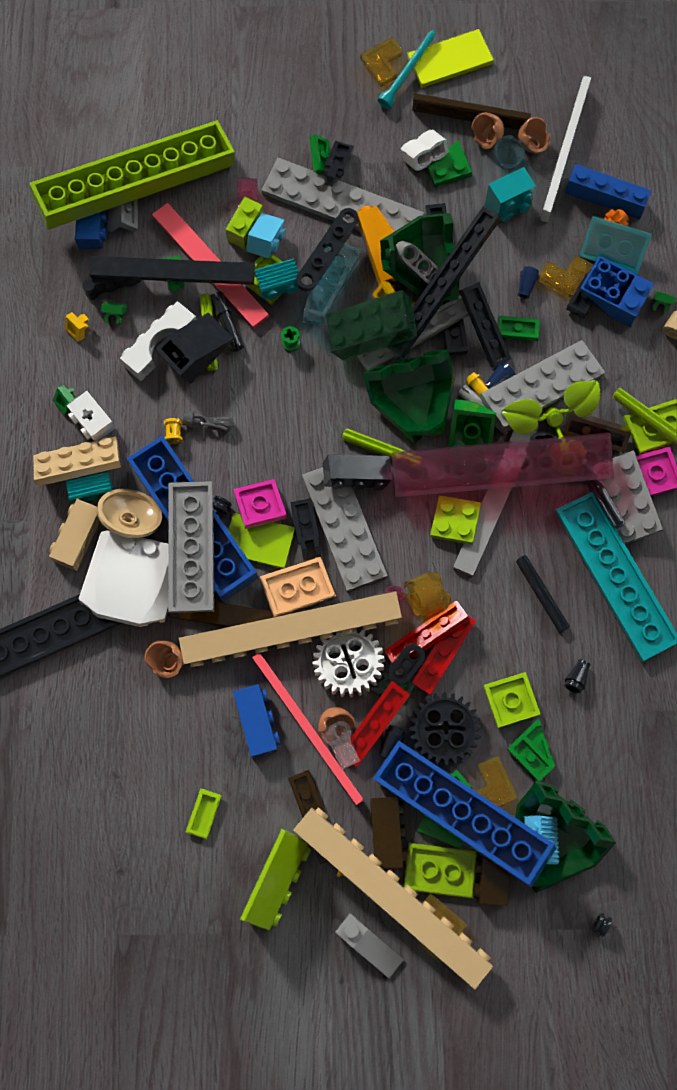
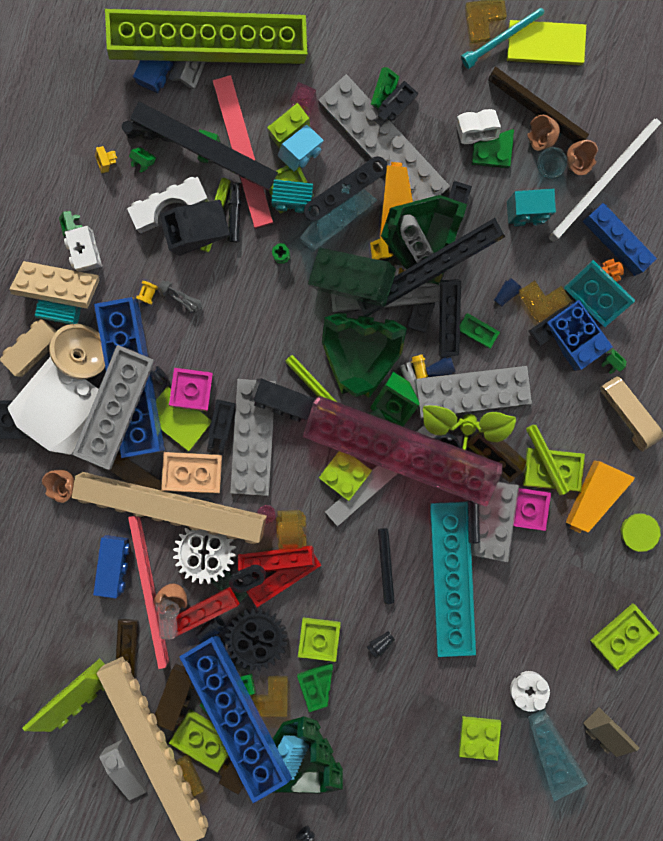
camera: 20 degrees right, 15 degrees up
(203, 813) = (41, 618): lime tile -> none

